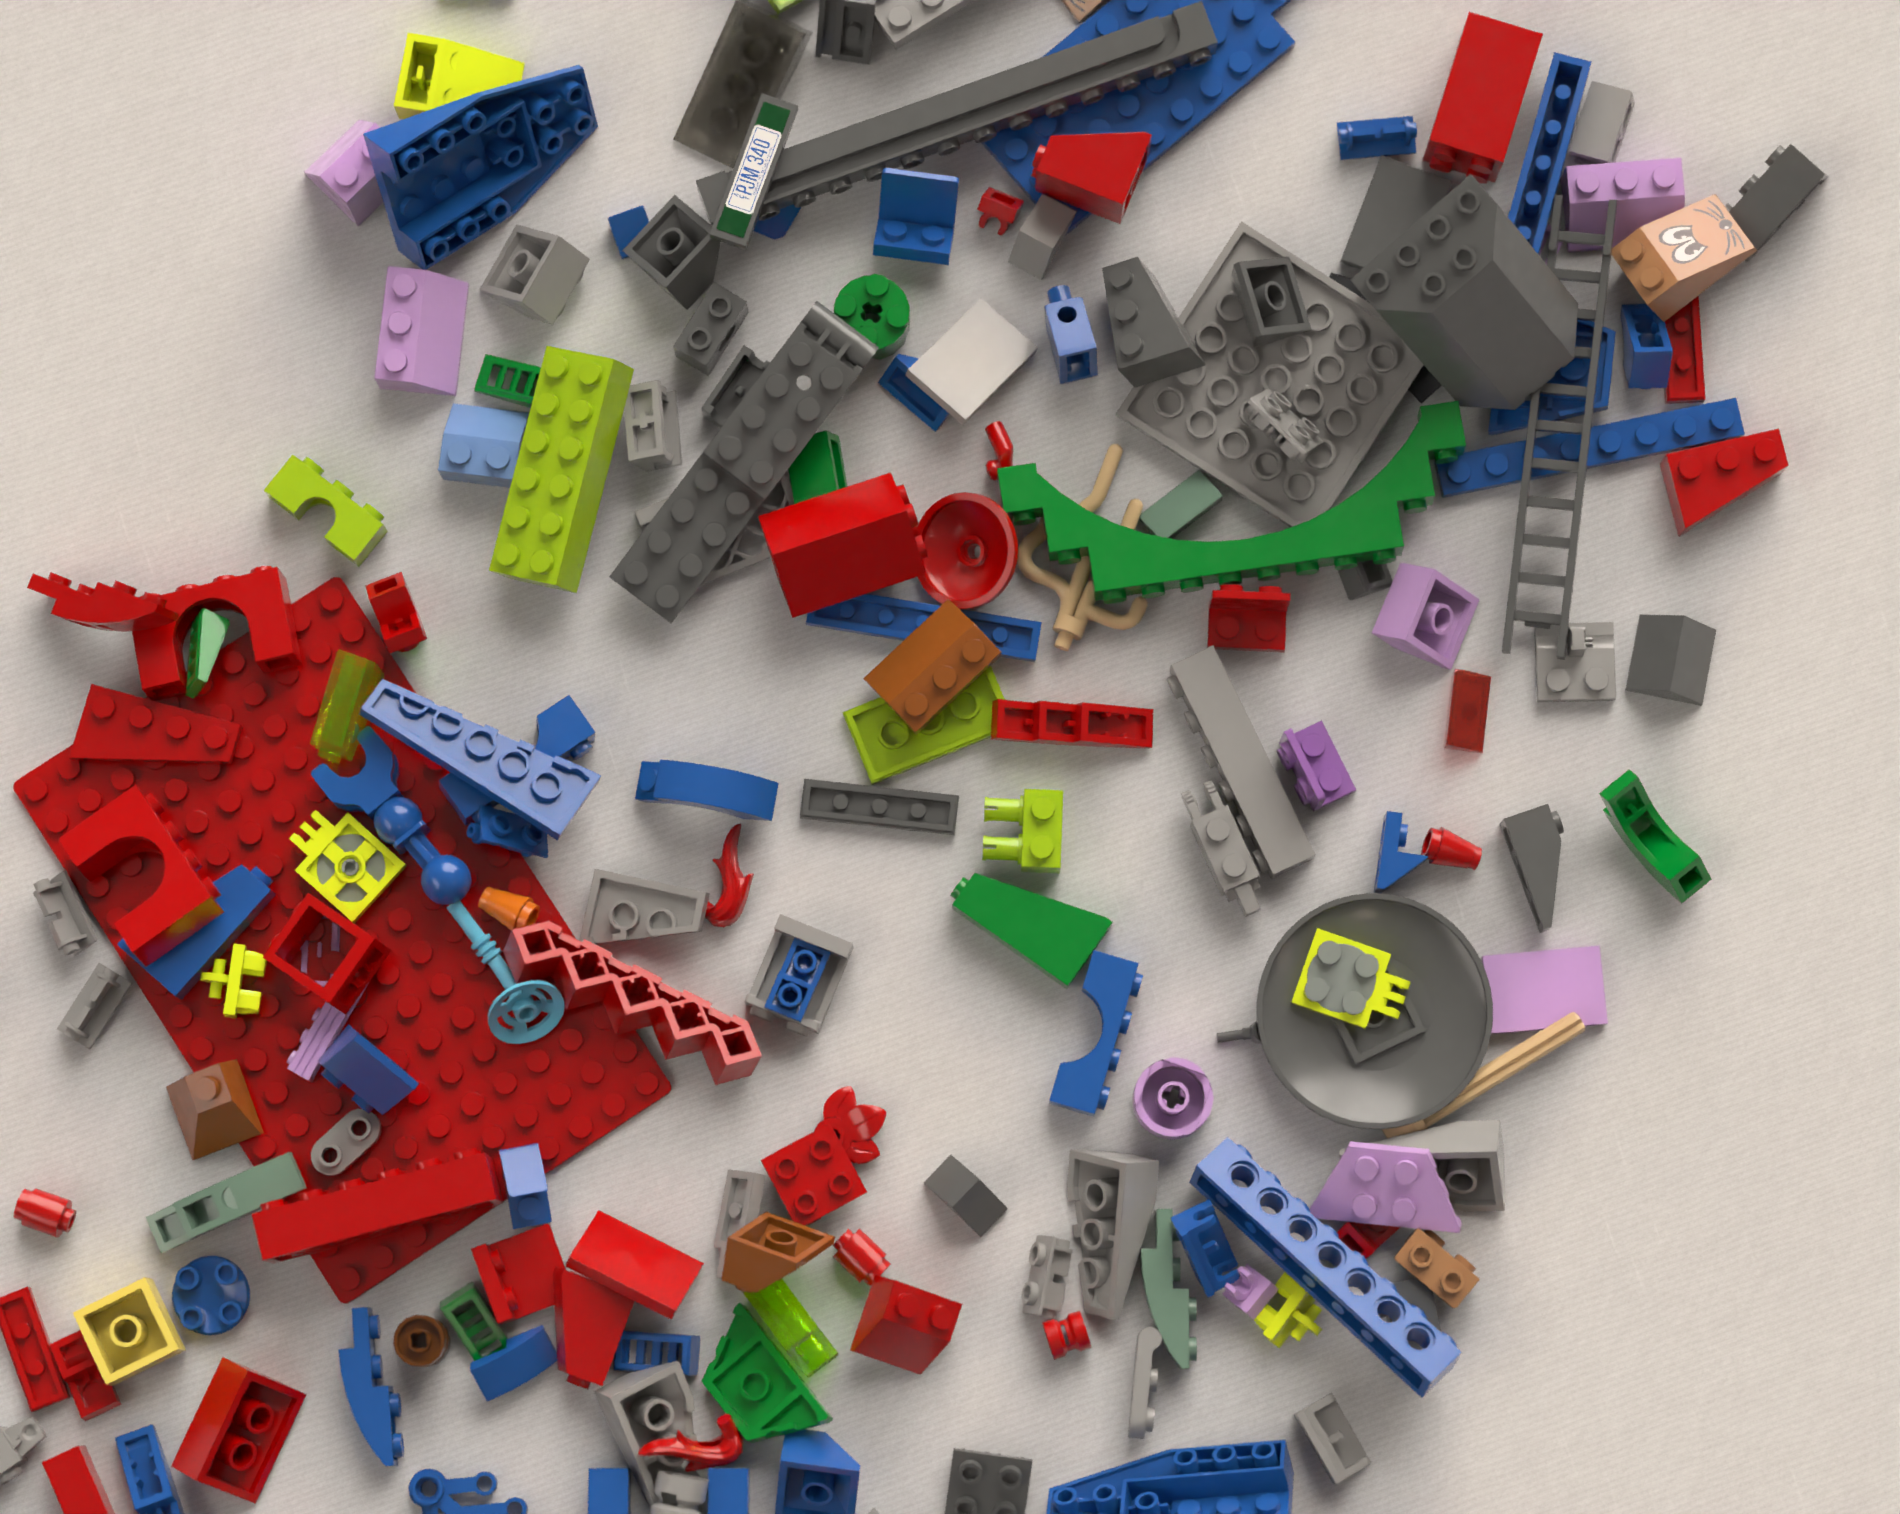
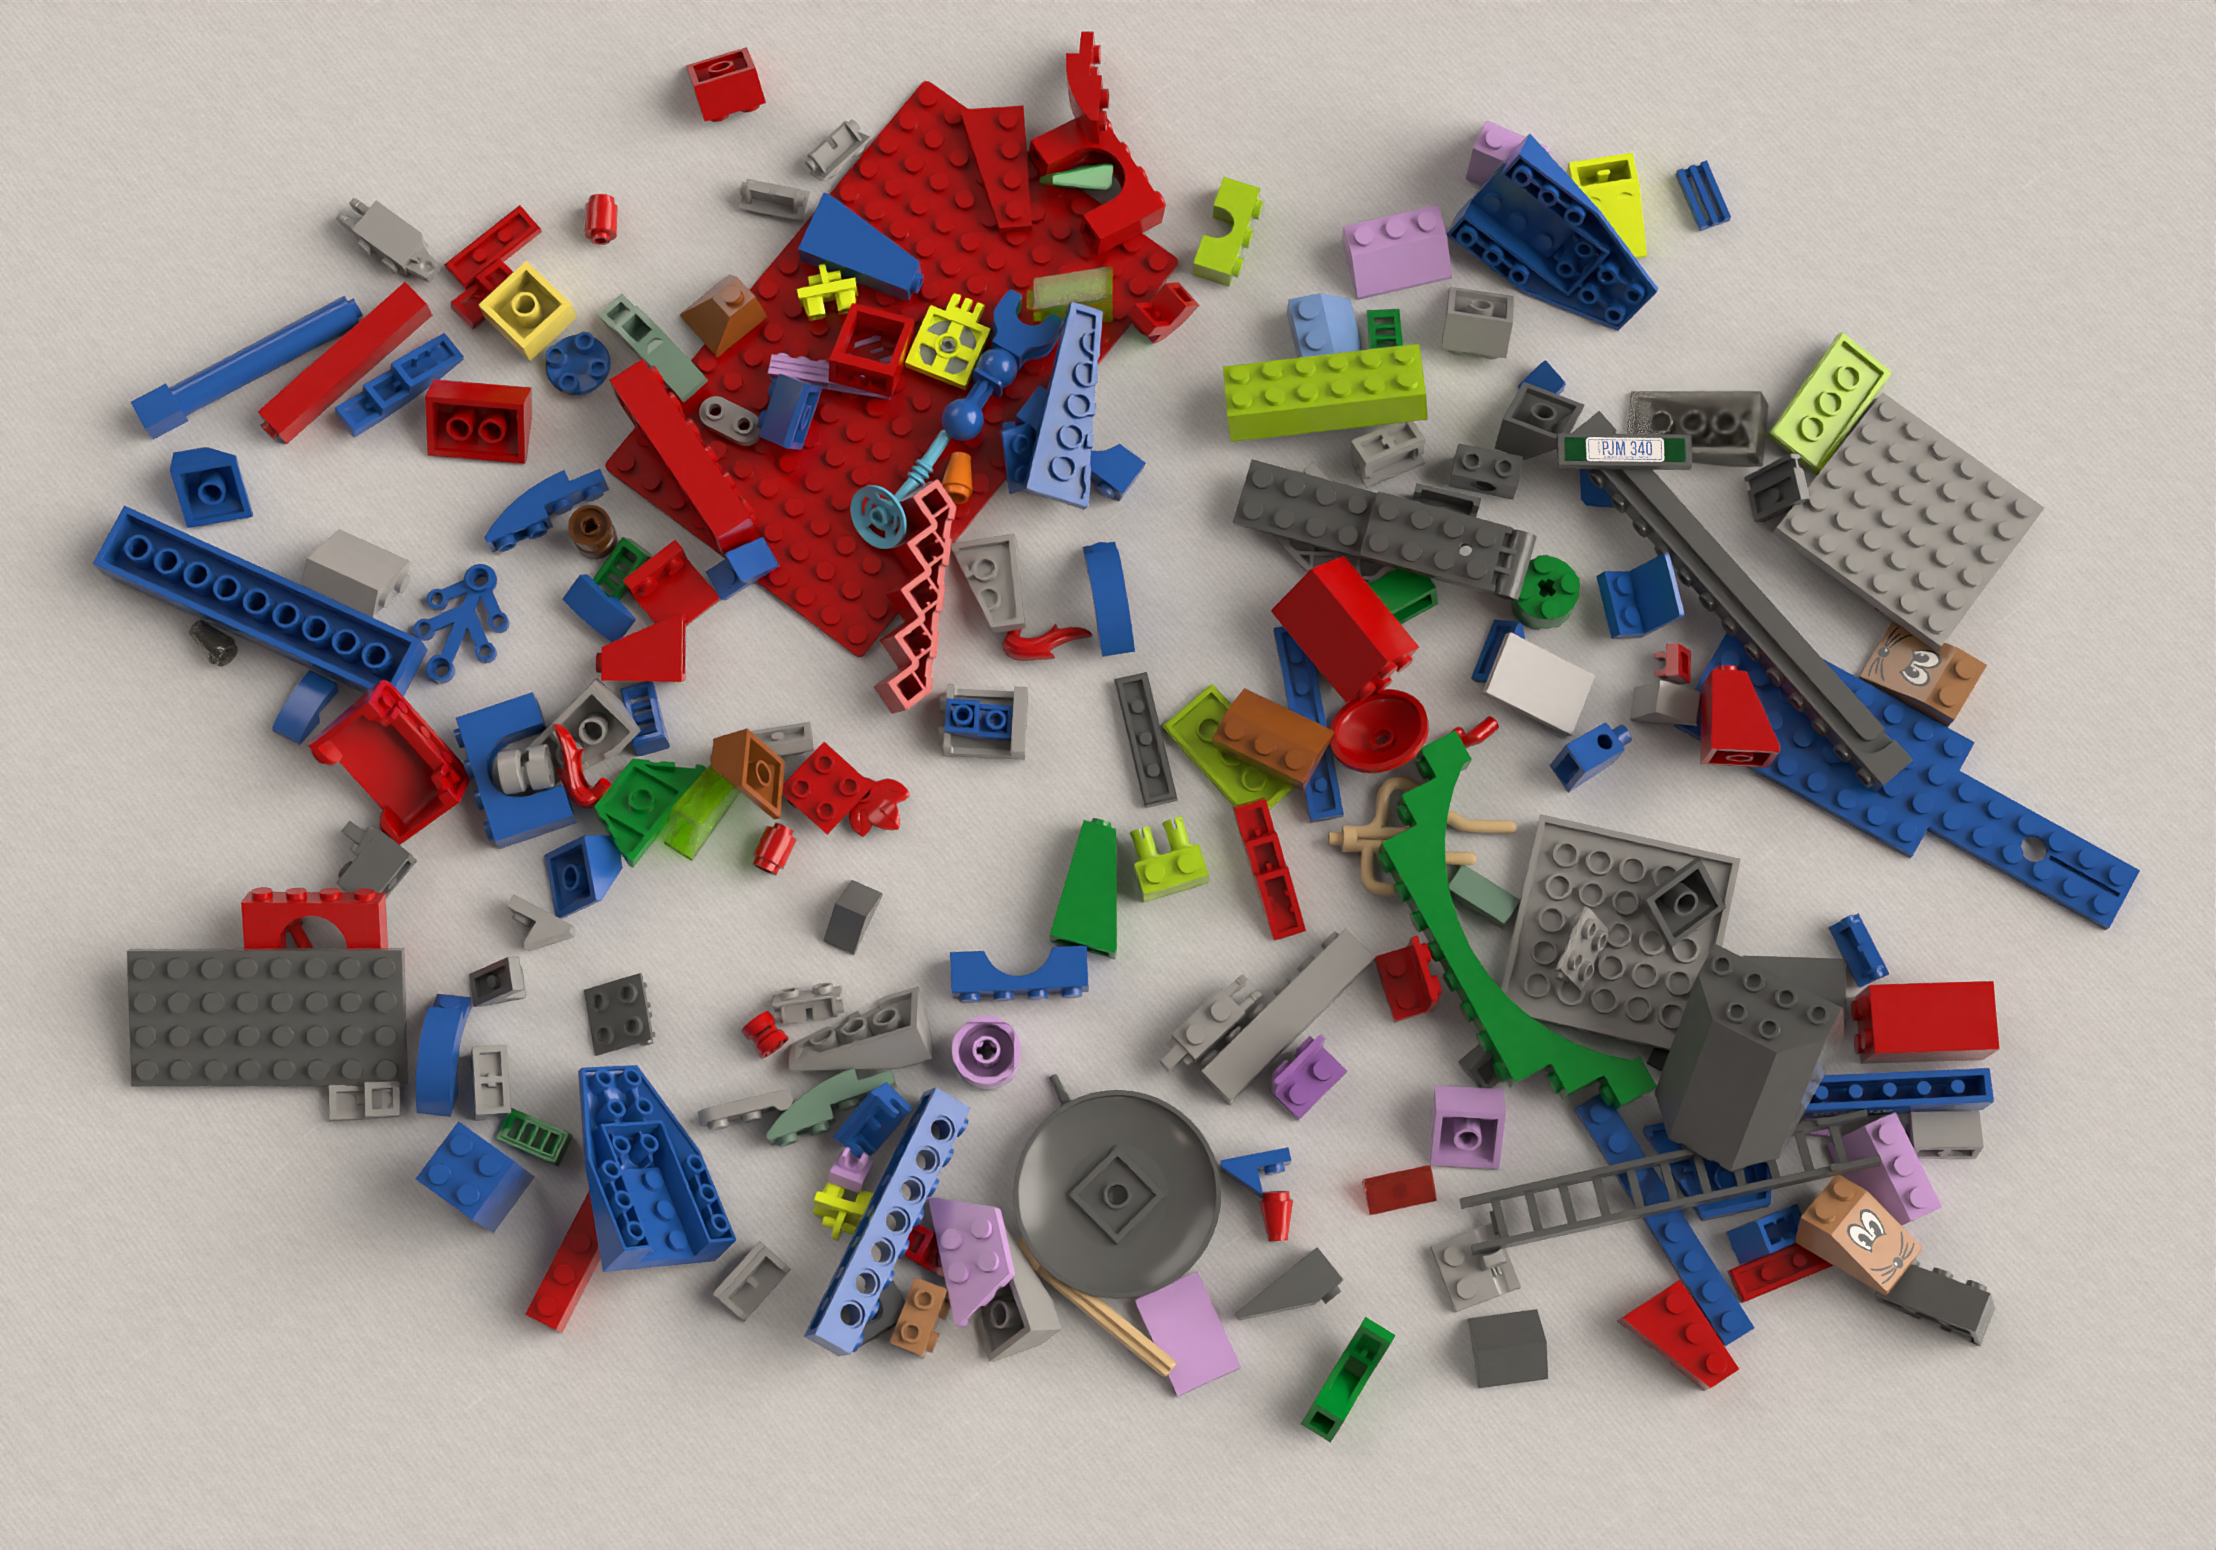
camera: 70 degrees right, 5 degrees down
(183, 898) = (876, 224): red arch -> none
(634, 1264) = (706, 672): tile -> none
(904, 1325) = (729, 899): red slope -> none
(1144, 326) = (1621, 809): dark grey wedge -> none
(1347, 980) = (1135, 1163): piece -> none

